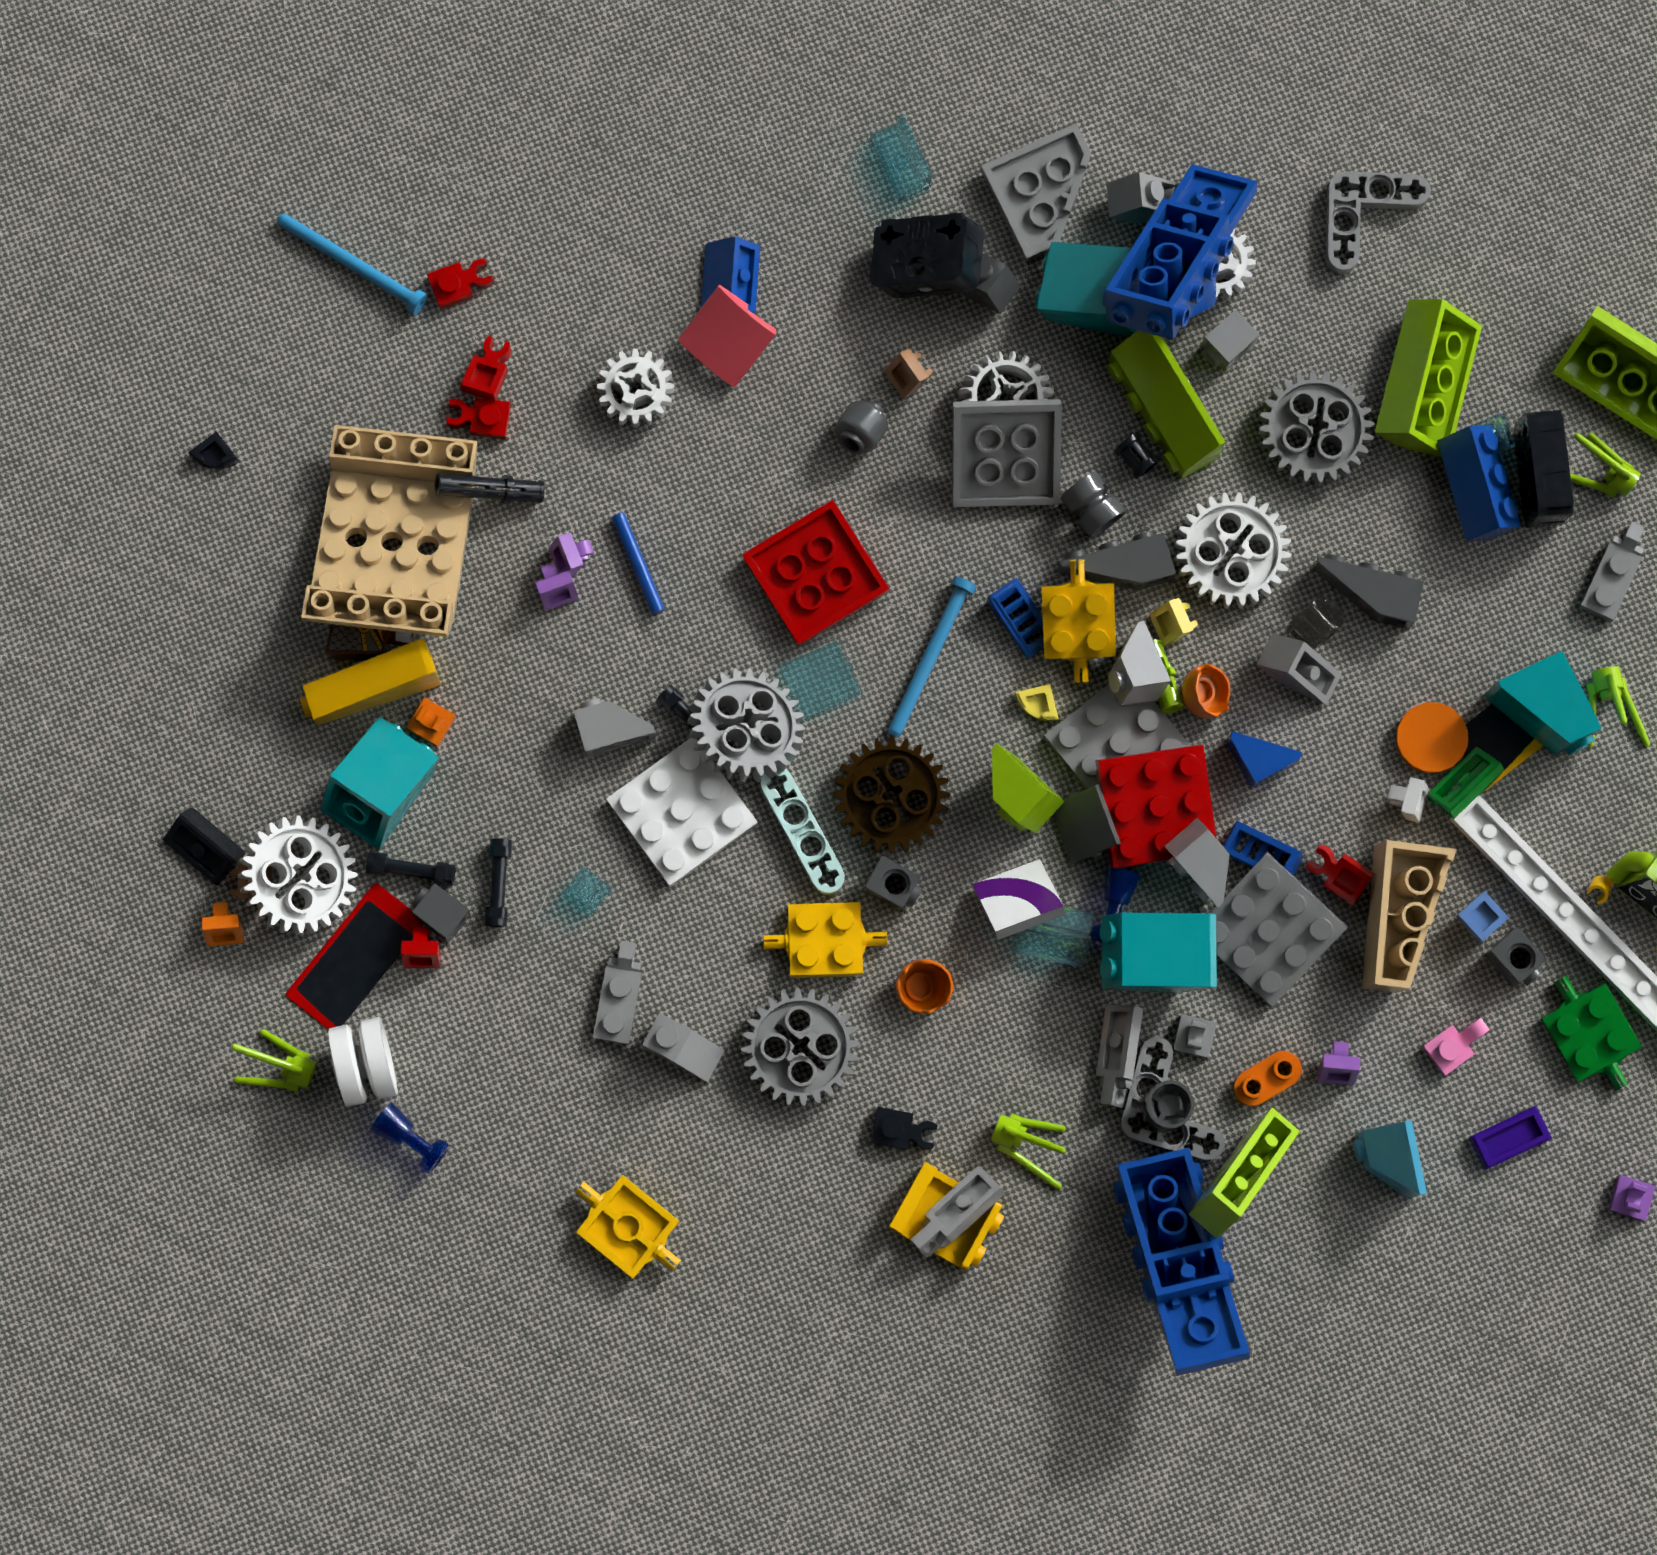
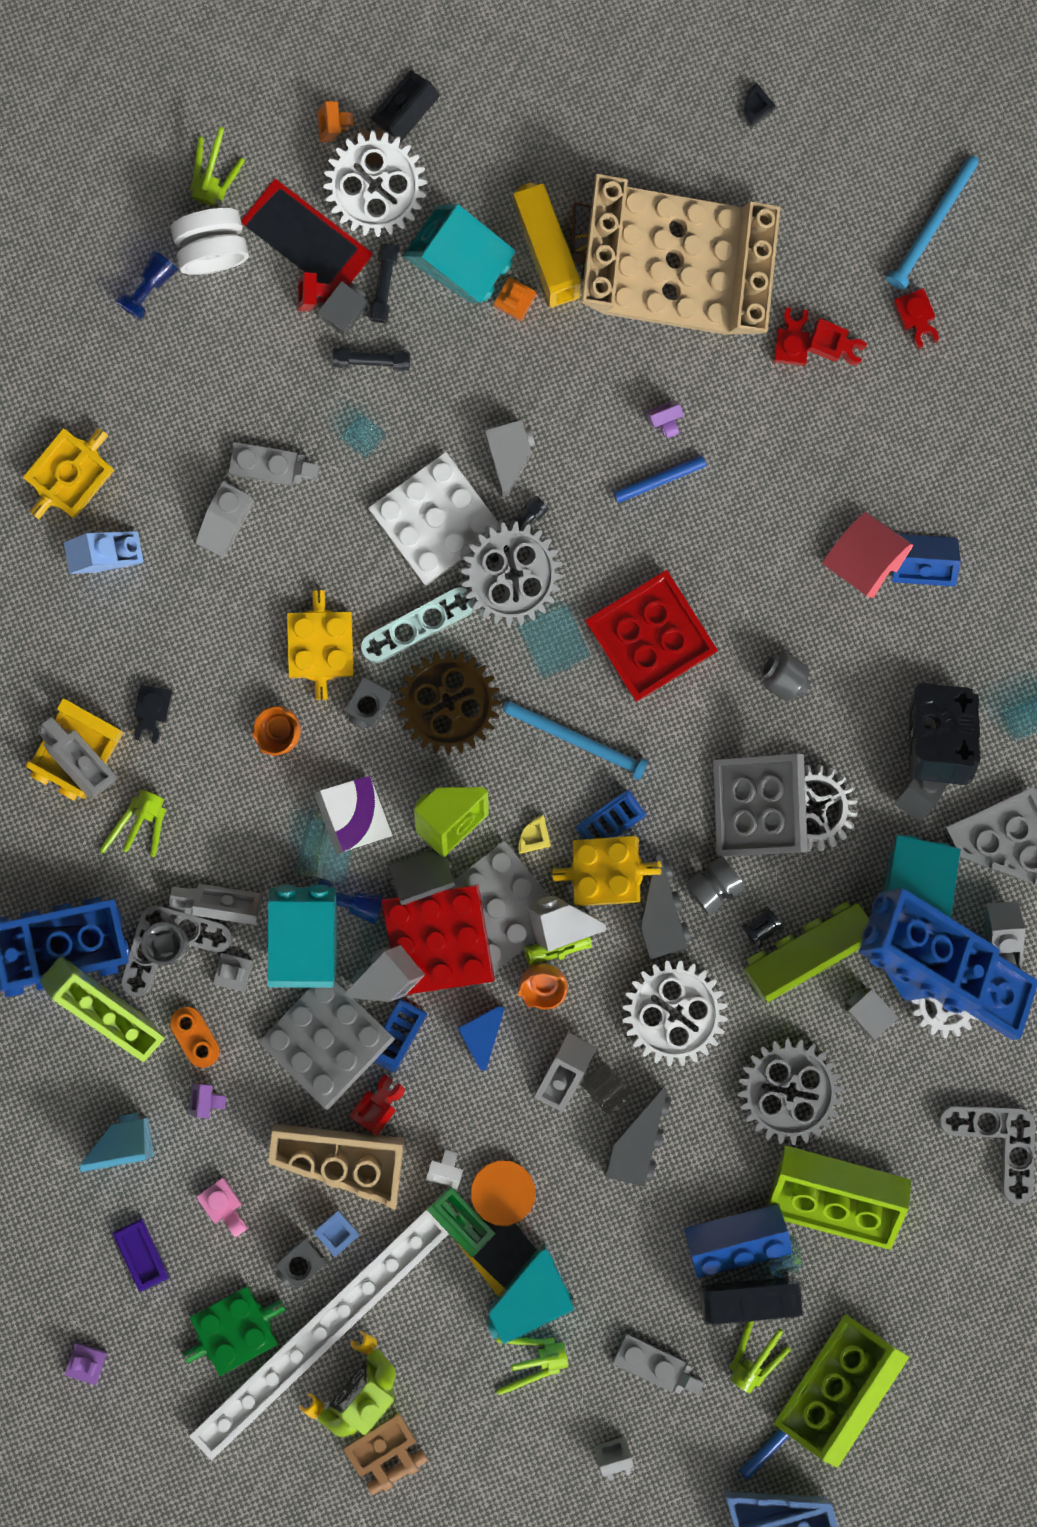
camera: 95 degrees right, 5 degrees up
(530, 490) = (724, 382): black pin -> none
(555, 588) = (635, 405): medium lavender tile -> none
(648, 395) = (807, 470): white gear -> none
(719, 1185) = (103, 551): none -> light blue slope
(777, 1071) = (202, 603): light grey gear -> none
(907, 373) = (836, 718): medium nougat tile -> none
(1172, 621) = (607, 957): light yellow tile -> none

